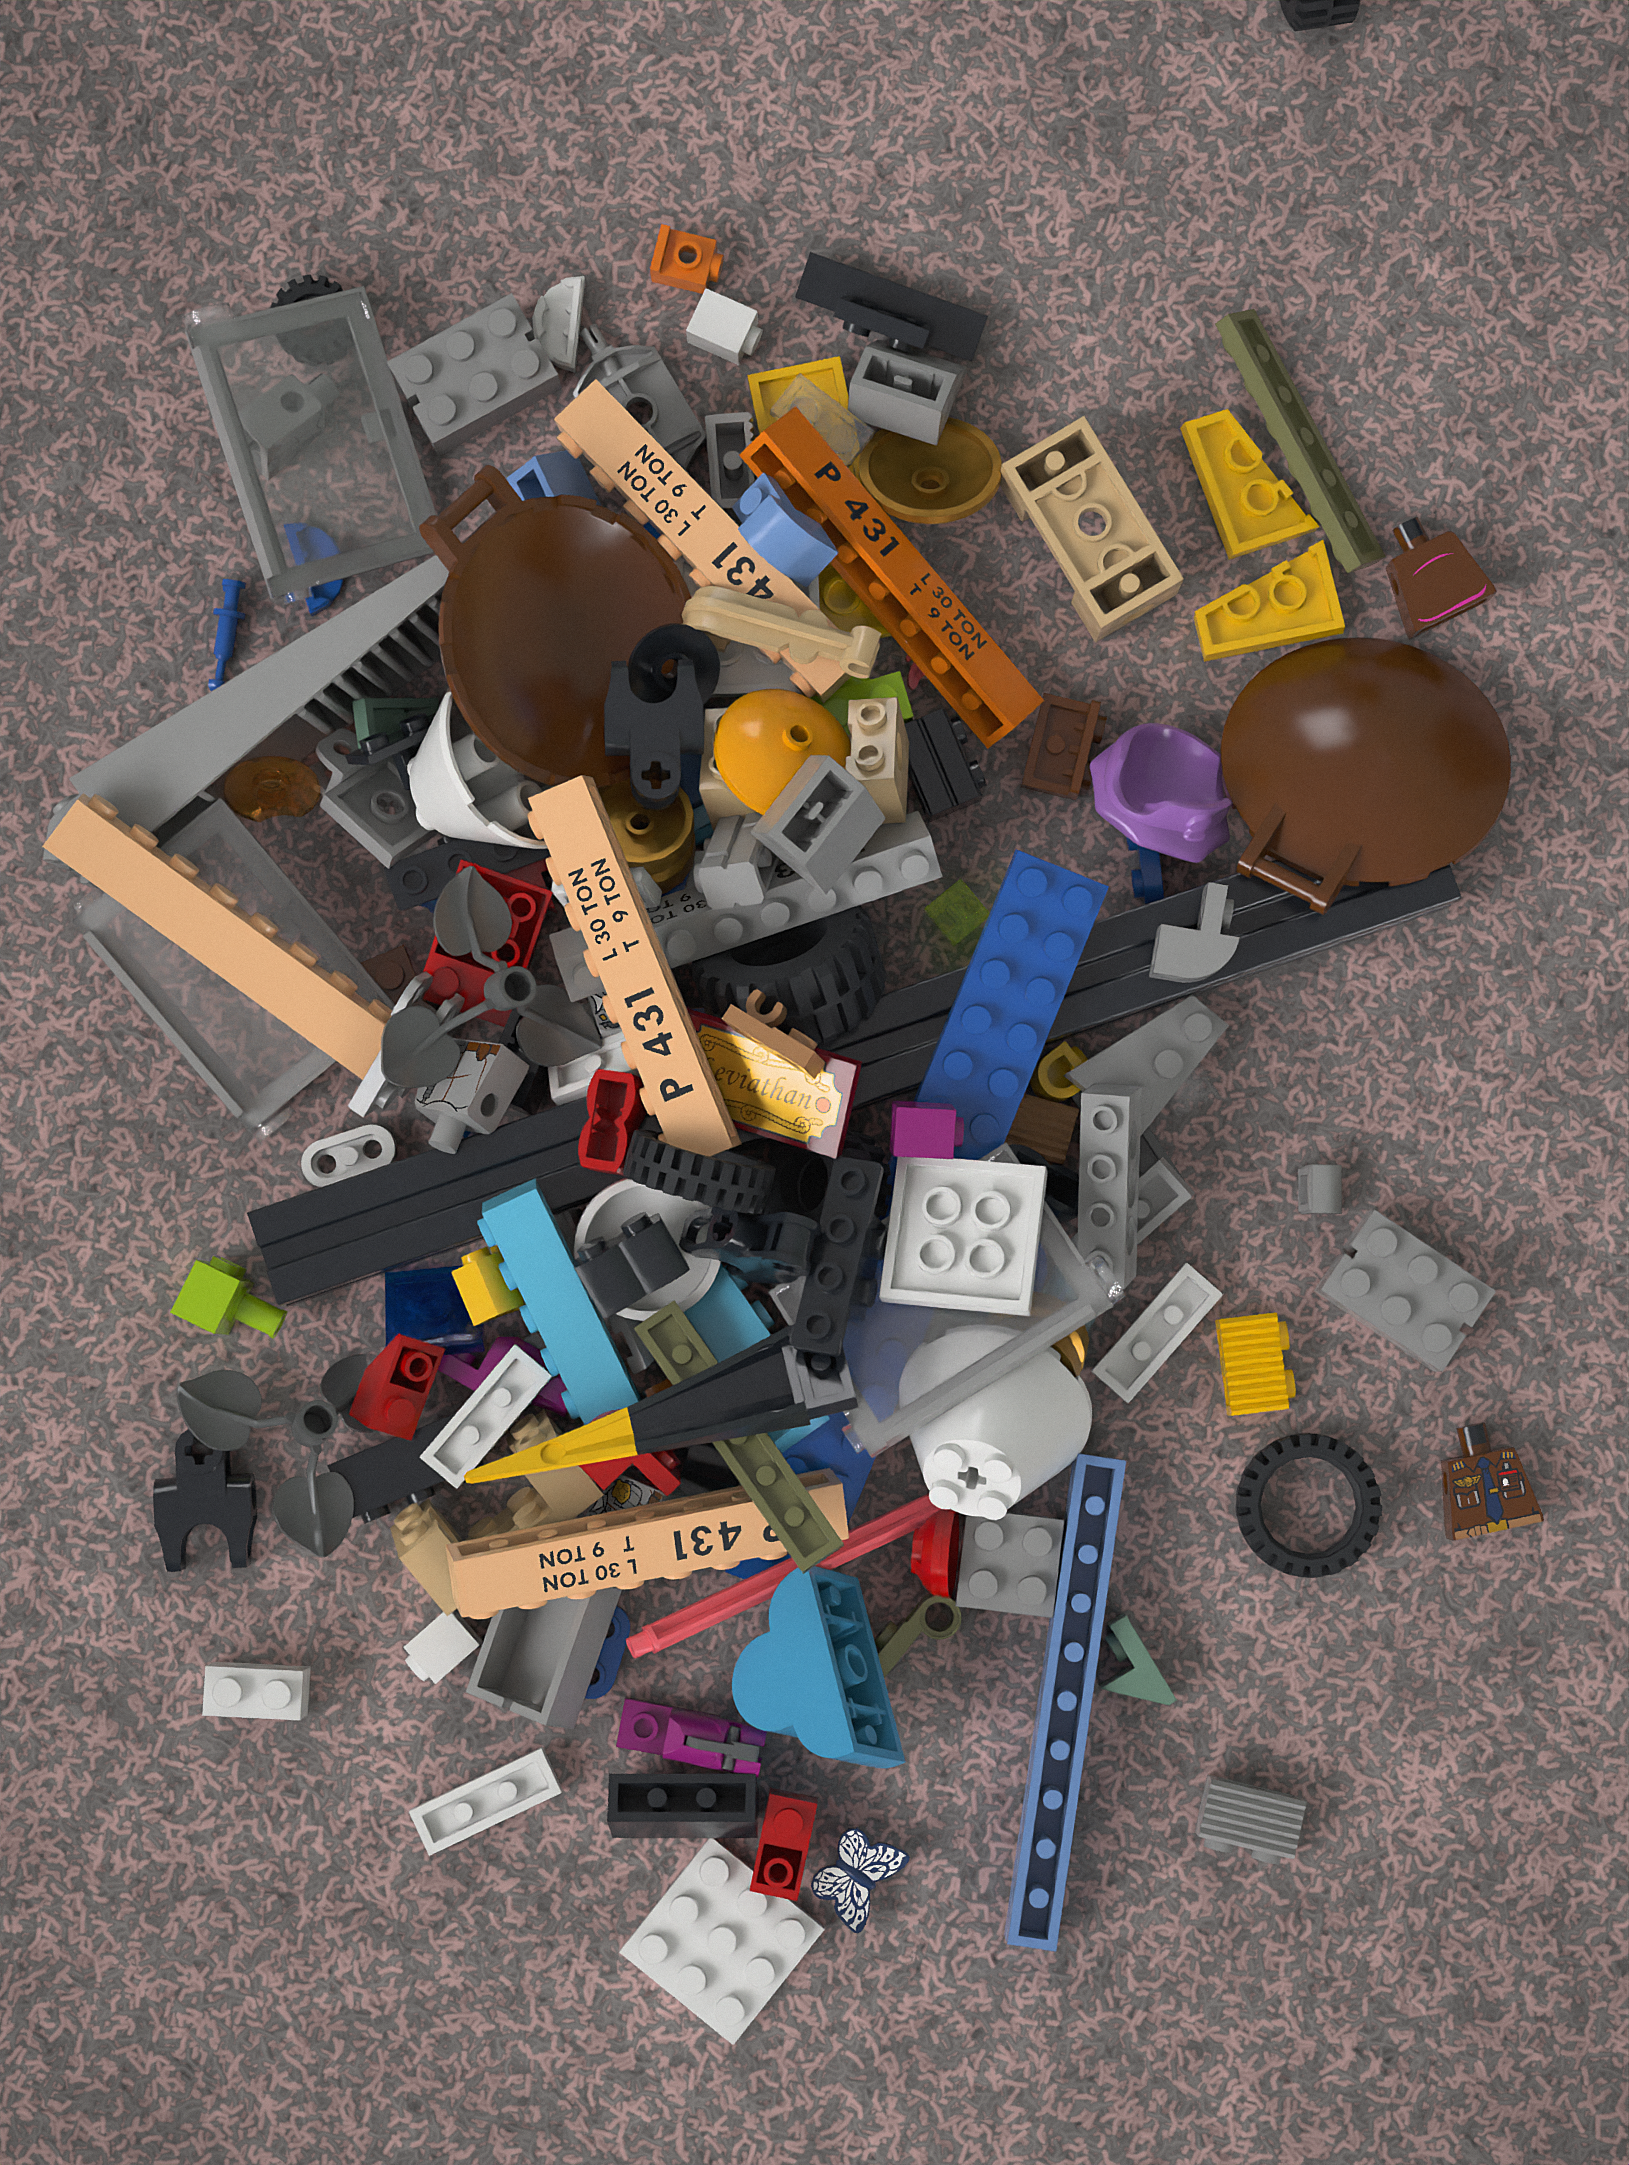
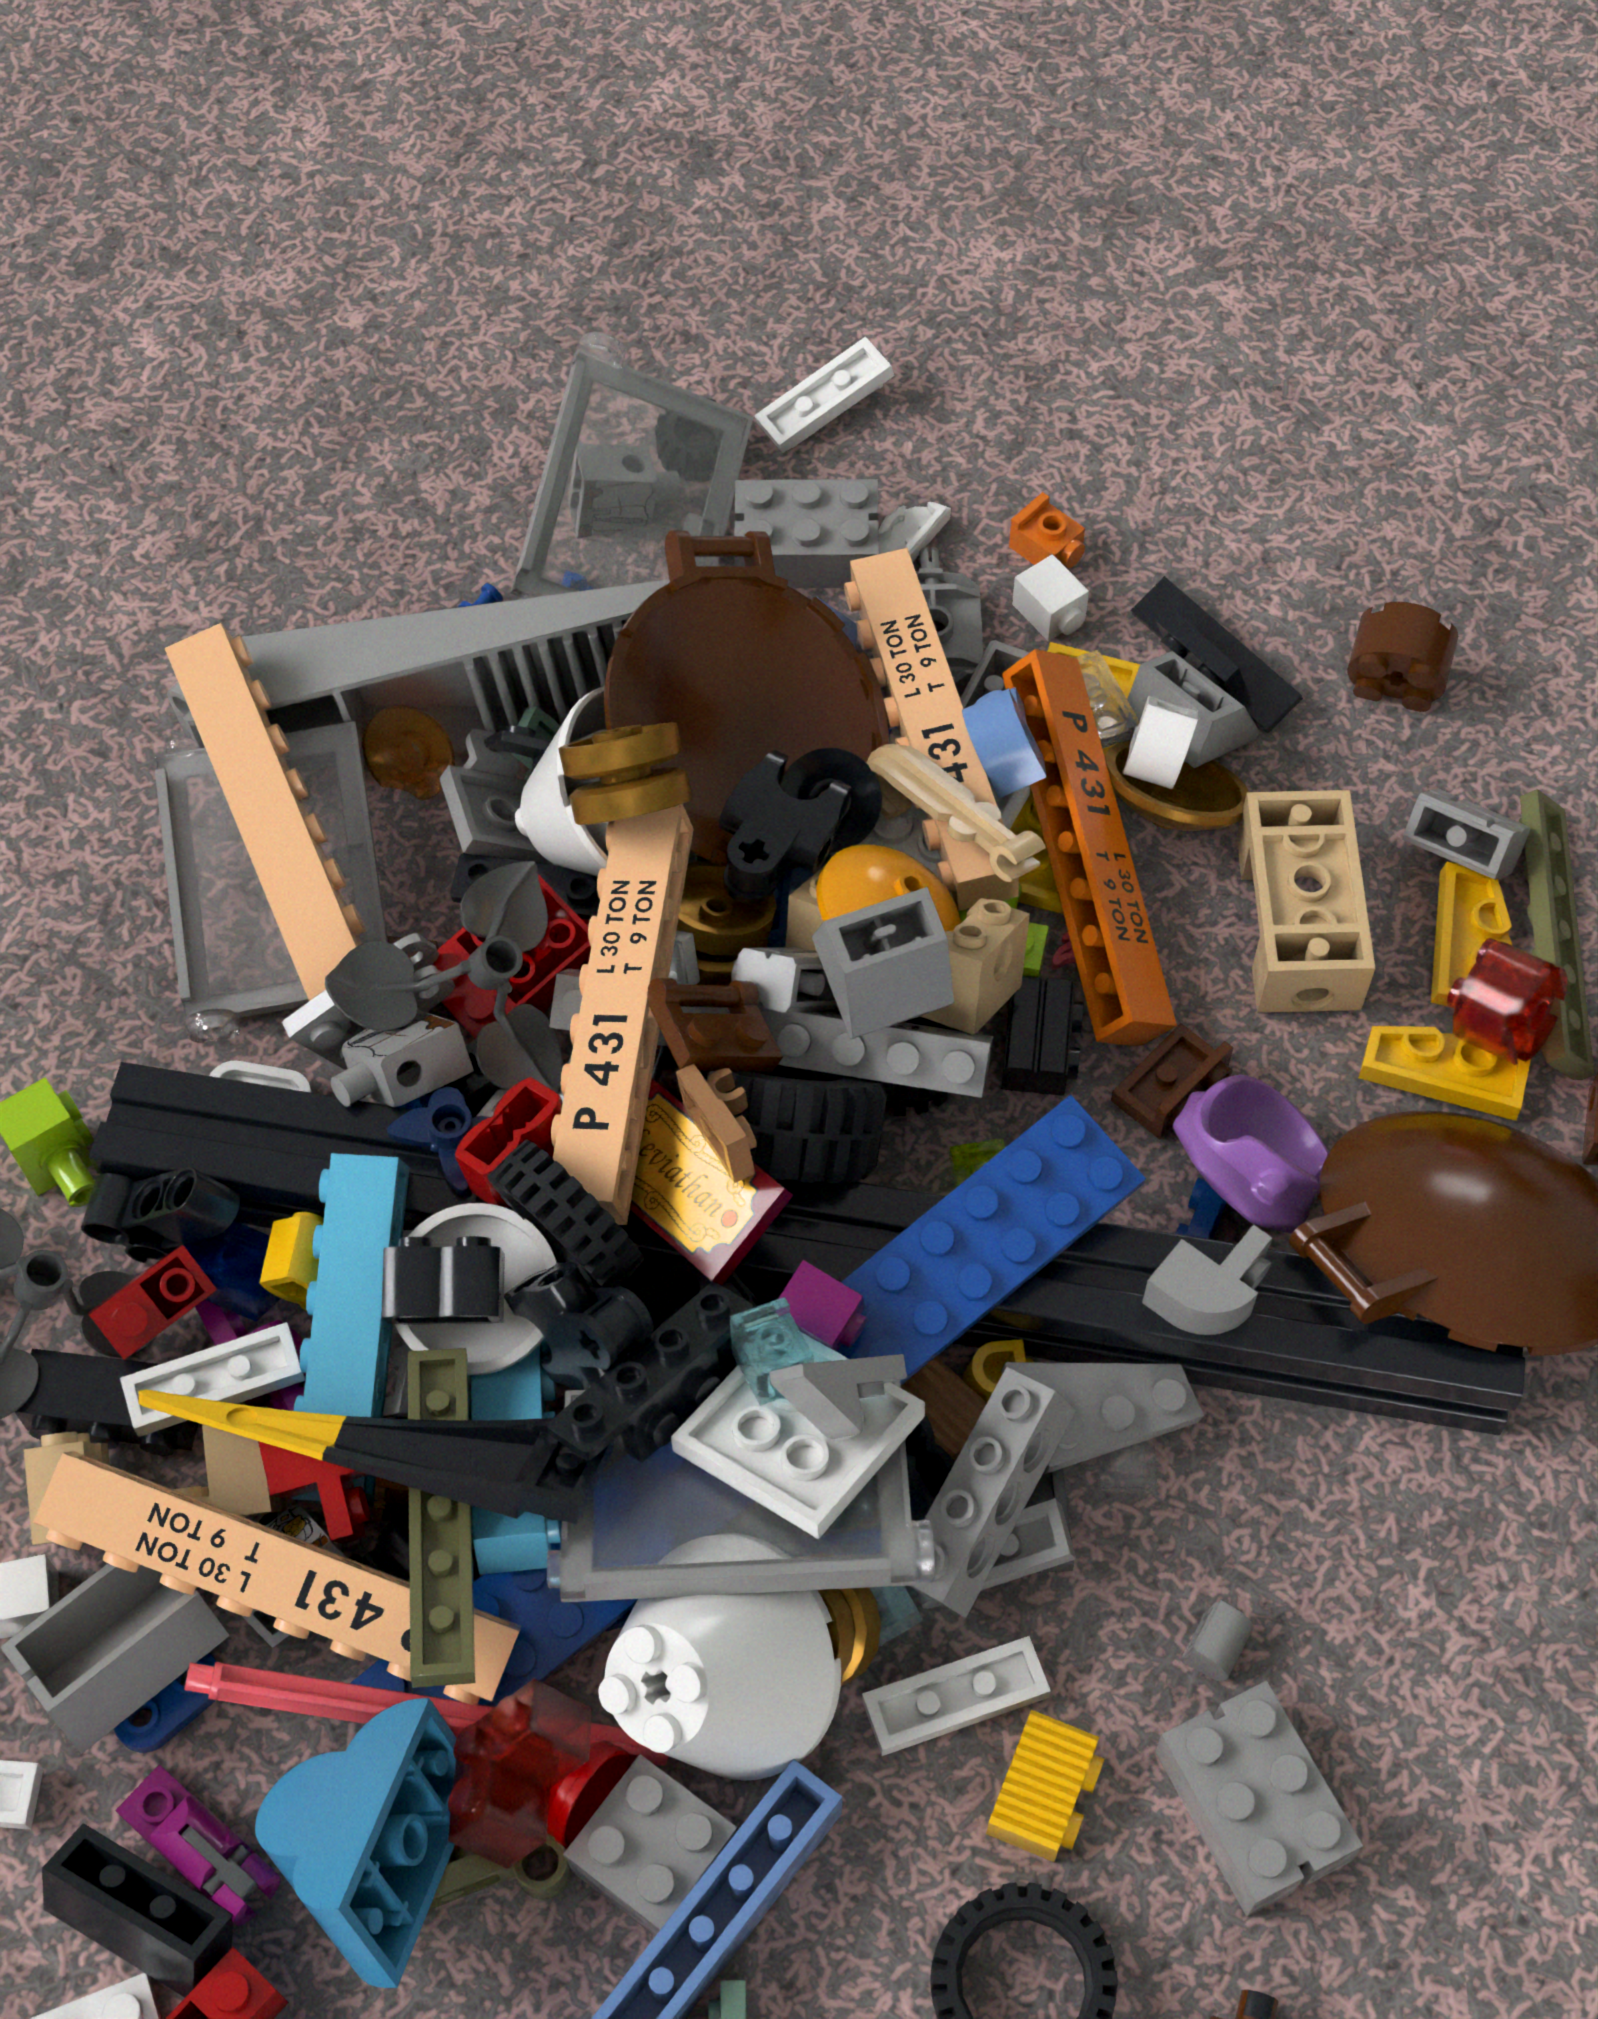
camera: 30 degrees right, 25 degrees down
(355, 1309) = (158, 1212): none -> black piece
(401, 210) = (824, 395): none -> white hinge
(530, 784) = (624, 764): none -> pearl gold wheel
(545, 1132) = (441, 1129): none -> dark blue animal
(731, 965) = (714, 1039): none -> reddish brown plate
(887, 1575) = (508, 1769): none -> clear red brick
(910, 459) = (1160, 742): none -> white brick
(925, 1212) = (765, 1342): none -> clear light blue brick
(981, 1202) = (831, 1389): none -> light grey slope
(1054, 233) = (1402, 655): none -> reddish brown brick
(1189, 388) = (1466, 833): none -> light grey brick
(1297, 548) = (1507, 1001): none -> clear red brick

